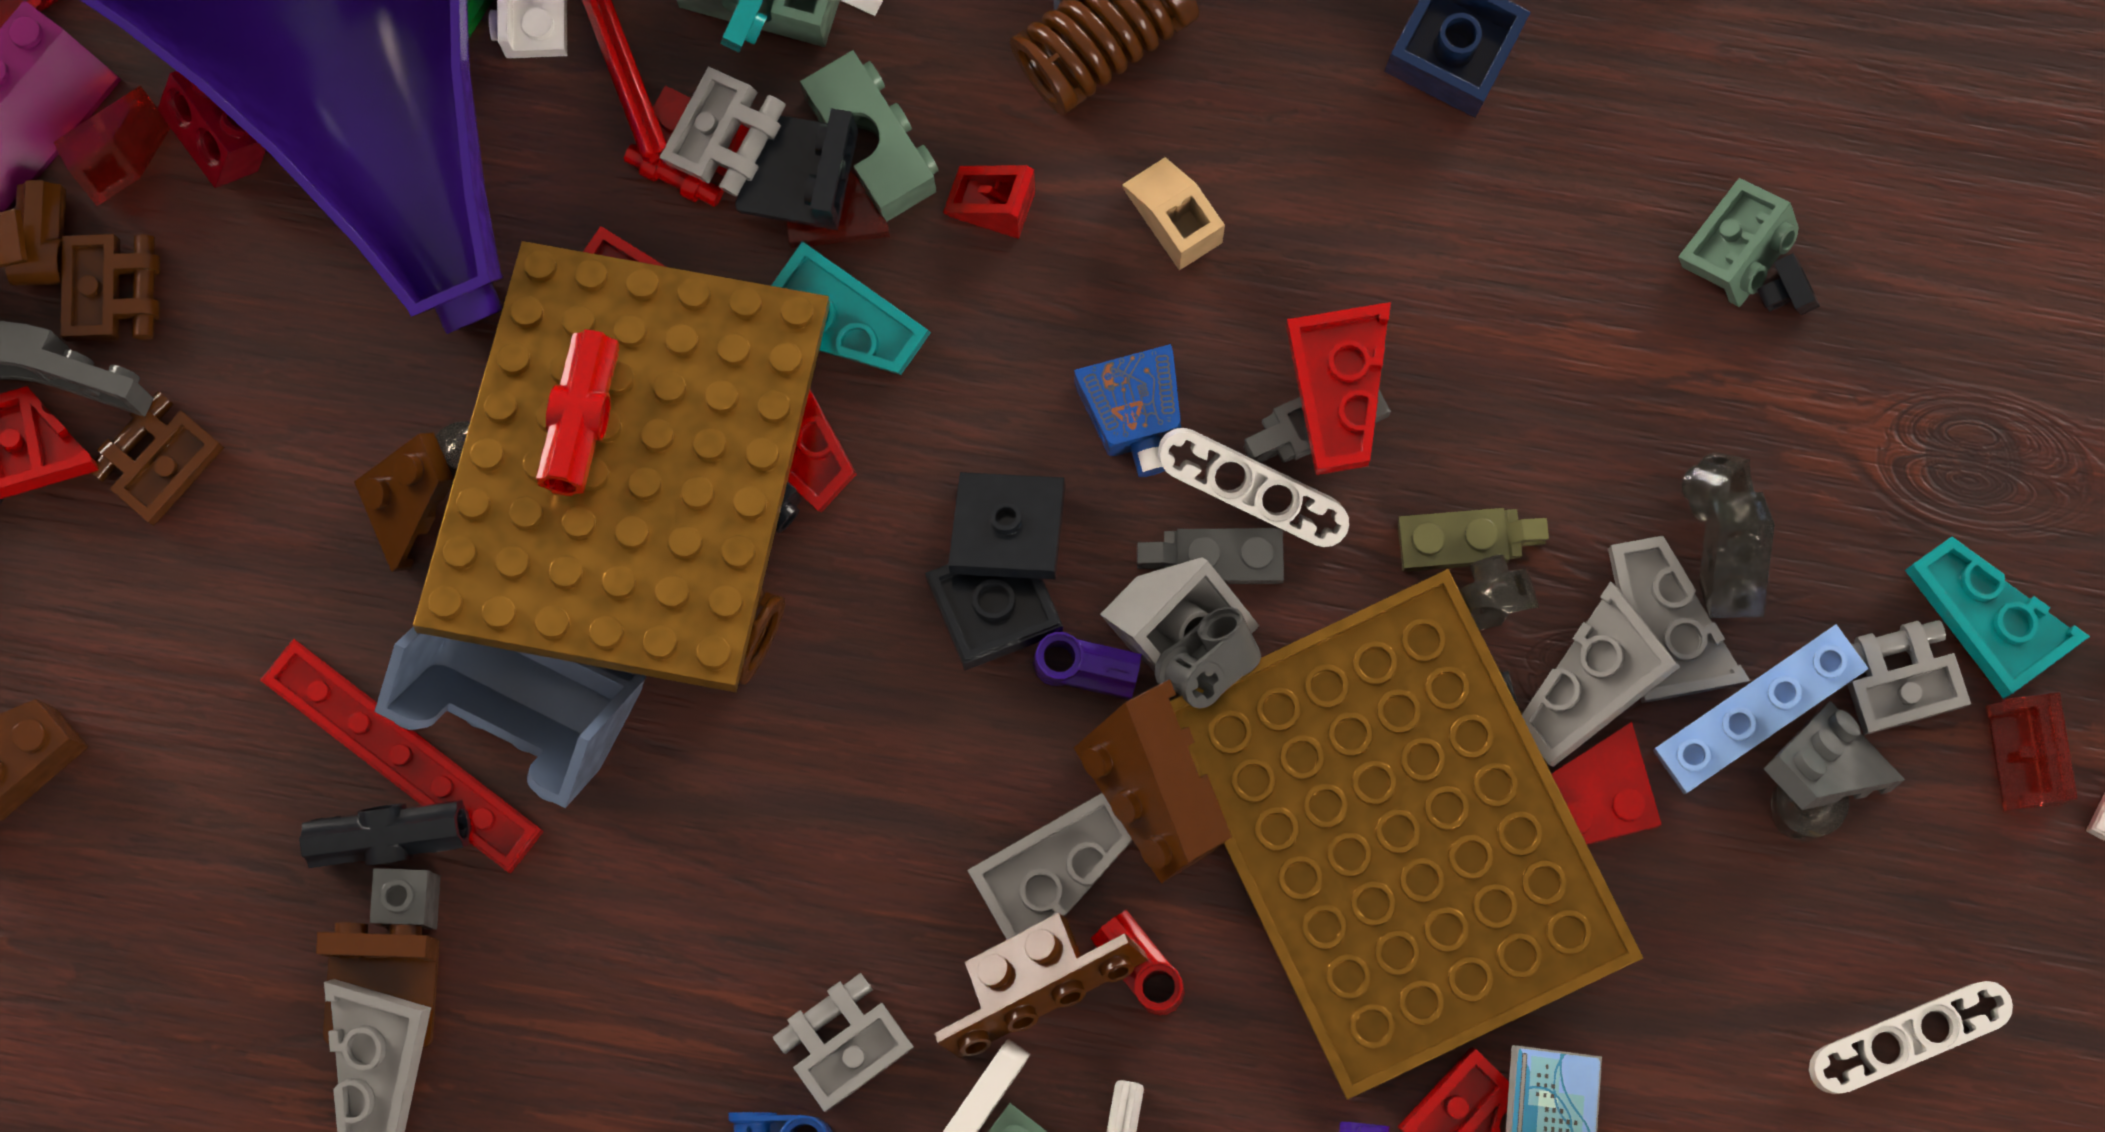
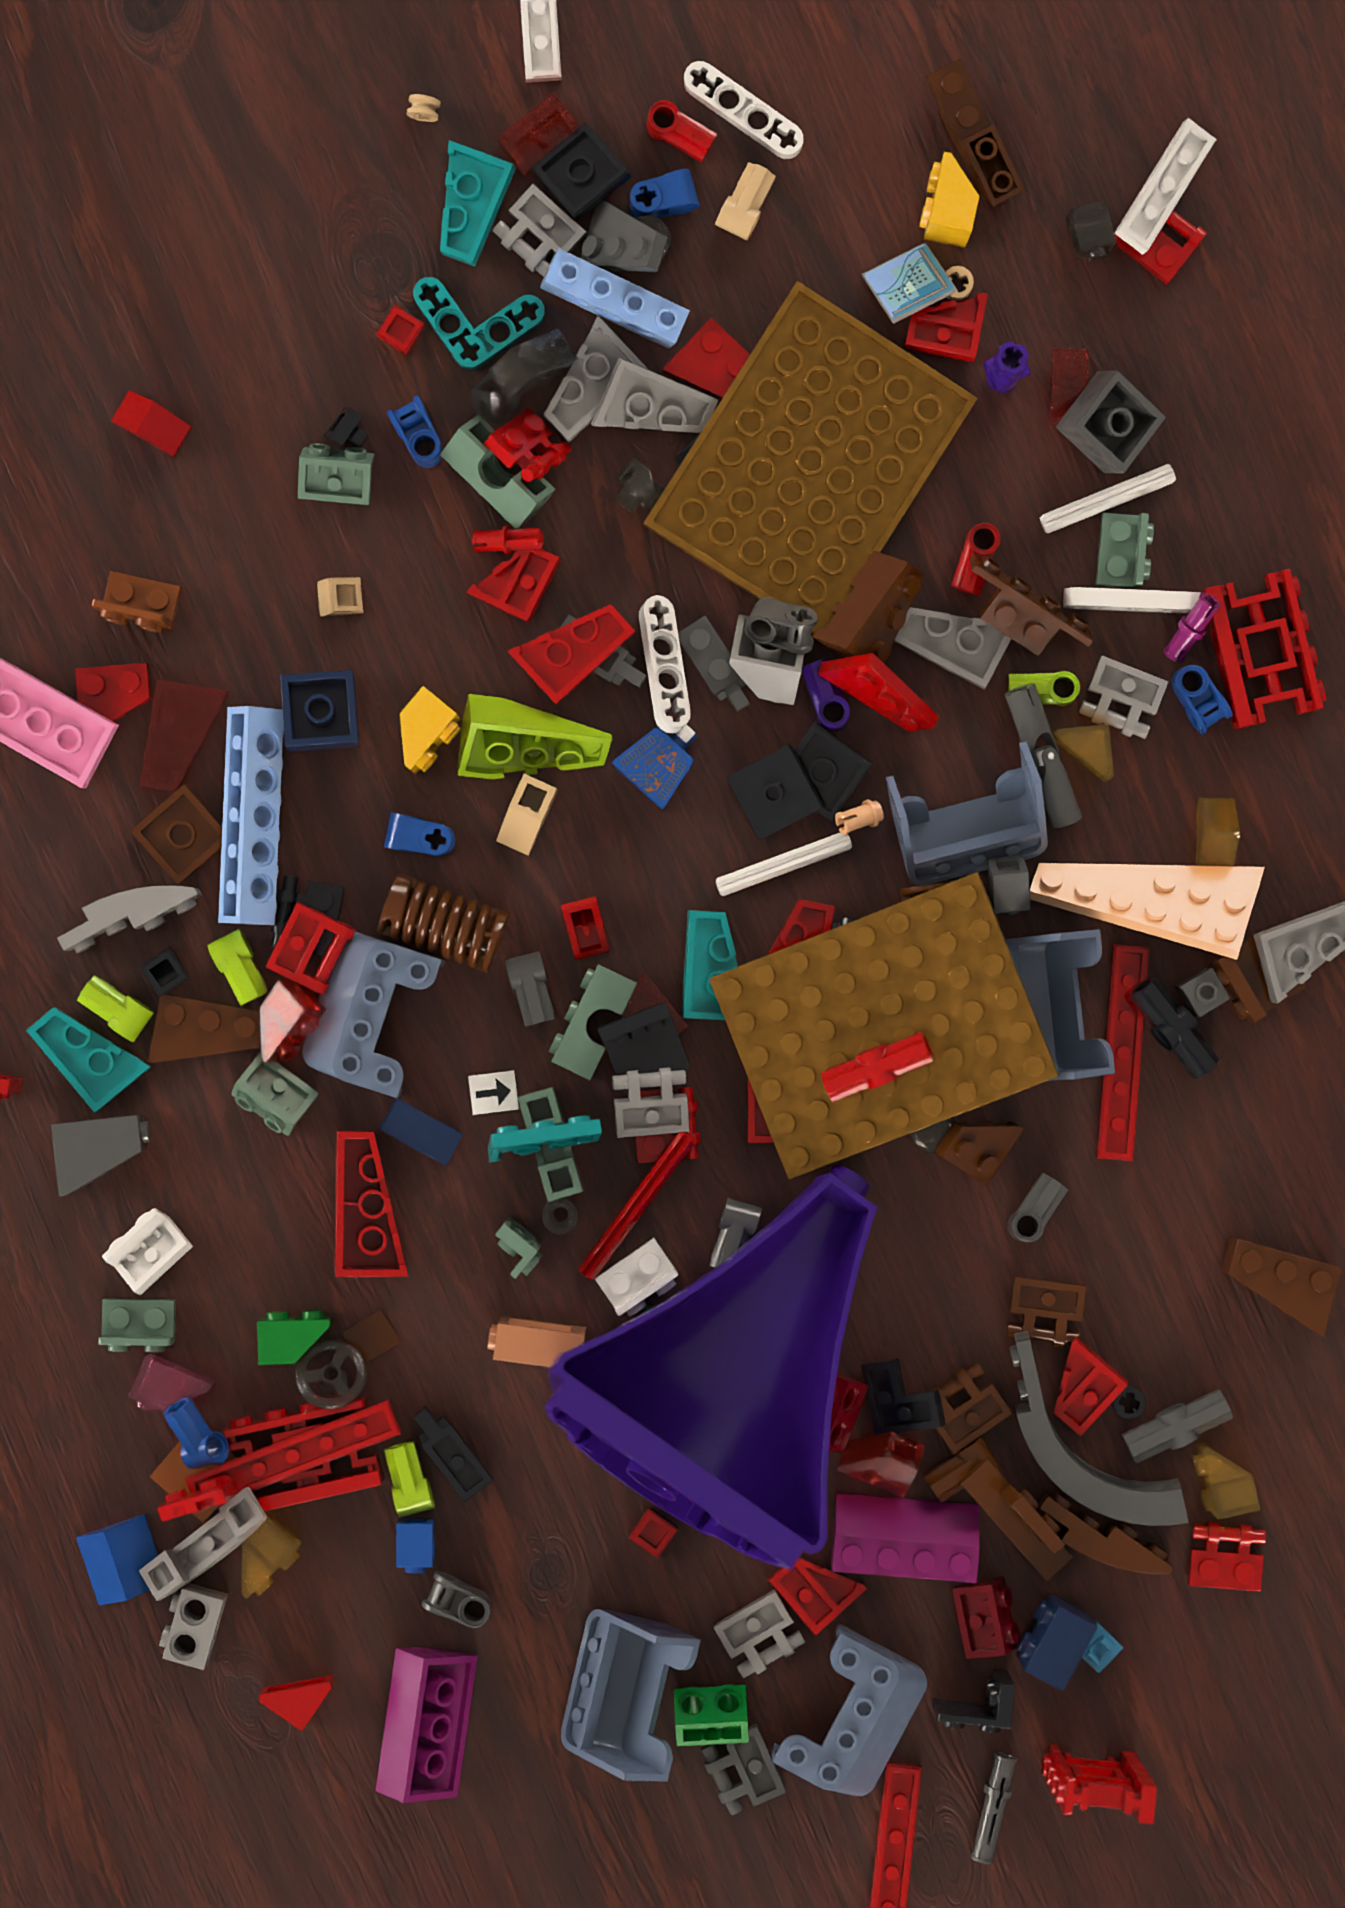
camera: 120 degrees left, 10 degrees up
(167, 200) = (894, 1408): none -> black plate
(284, 525) = (1038, 1205): none -> dark grey piece
(508, 152) = (736, 1228): none -> dark grey piece
(536, 937) = (1175, 902): none -> light nougat wing
(593, 1052) = (1217, 832): none -> clear yellow slope
(701, 739) = (1008, 885): none -> dark grey brick
(799, 734) = (964, 835): none -> sand blue windscreen
(800, 879) = (1031, 723): none -> dark grey piece
(808, 955) = (1090, 747): none -> clear yellow slope
(908, 611) = (867, 814): none -> light nougat pin
(912, 485) = (783, 863): none -> white axle
(921, 939) = (1044, 684): none -> lime piece
(973, 92) = (528, 979): none -> dark grey piece
(1046, 729) = (880, 689): none -> red wing
(1234, 65) = (413, 835): none -> blue piece
(1283, 249) = (513, 737): none -> lime wedge
(1358, 147) = (424, 727): none -> yellow slope
(1465, 537) = (613, 527): olive hinge -> none
(1467, 378) = (518, 583): none -> red wing
(1530, 393) = (507, 539): none -> red axle
(1583, 160) = (340, 596): none -> tan slope
(1650, 487) = (519, 438): none -> red plate
(1660, 417) = (507, 493): none -> sand green arch
(1744, 370) = (415, 427): none -> blue piece
(1778, 949) = (743, 208): none -> tan piece
(1811, 524) = (480, 335): none -> teal beam
(1856, 870) = (668, 195): none -> blue piece
(1877, 432) = (400, 330): none -> red tile
(1927, 936) = (683, 133): none -> red piece
(1937, 64) = (151, 423): none -> red slope
(1950, 776) = (581, 172): none -> black plate

